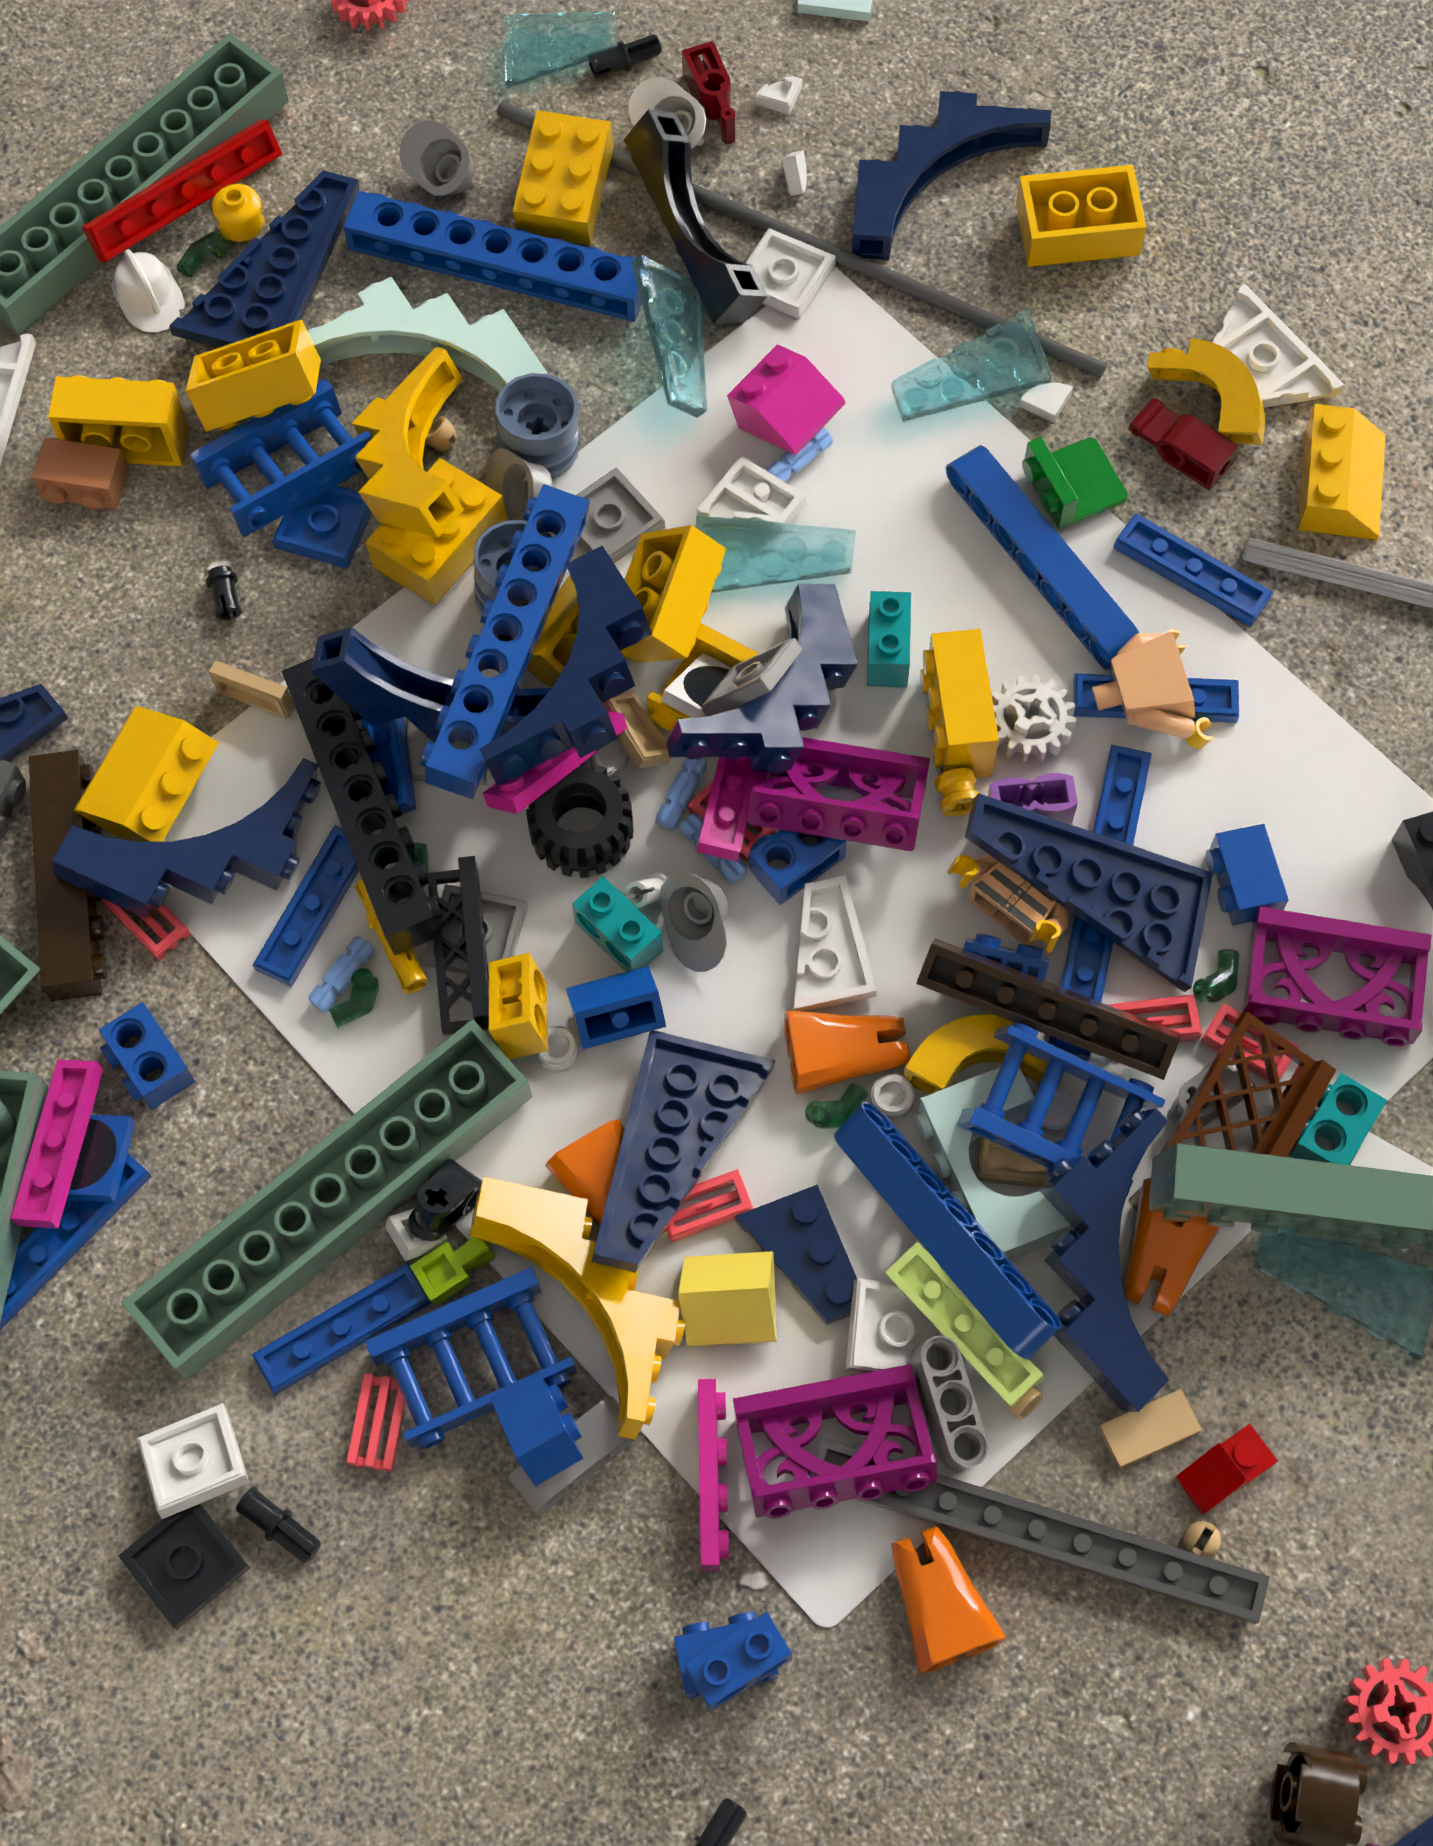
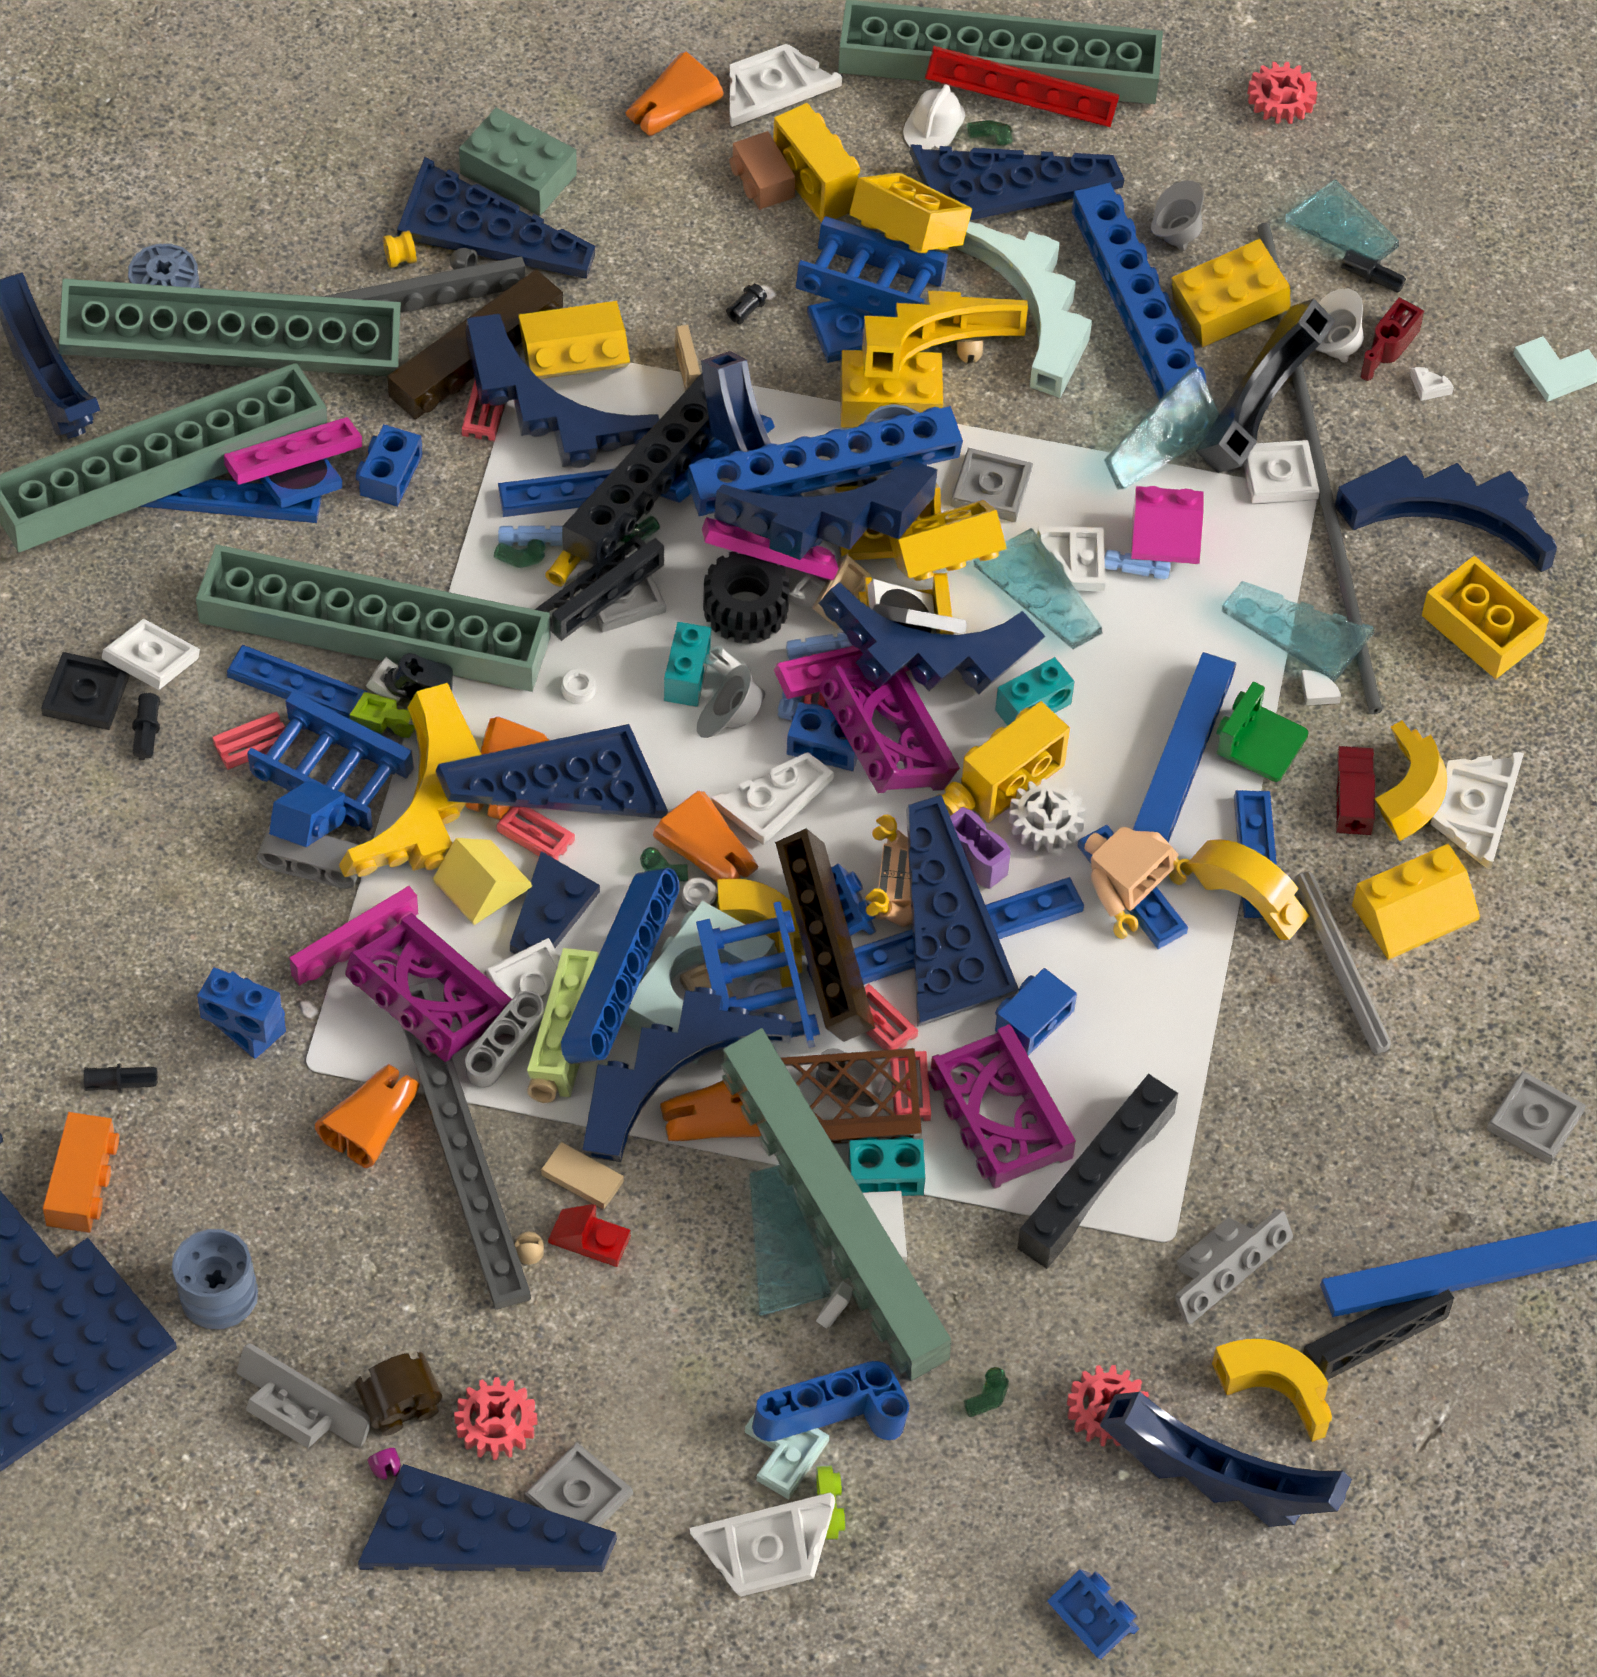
camera: 50 degrees right, 10 degrees down
(238, 212) = (1035, 129): yellow head -> none
(515, 480) = (971, 415): light grey piece -> none
(518, 1006) = (582, 637): yellow brick -> none
(539, 421) = (1017, 394): sand blue wheel -> none
(616, 1007) = (628, 694): blue brick -> none
(795, 172) = (1369, 428): white tile -> none
(1222, 982) = (941, 1042): clear green arm -> none
(1232, 590) = (1255, 878): none -> yellow arch

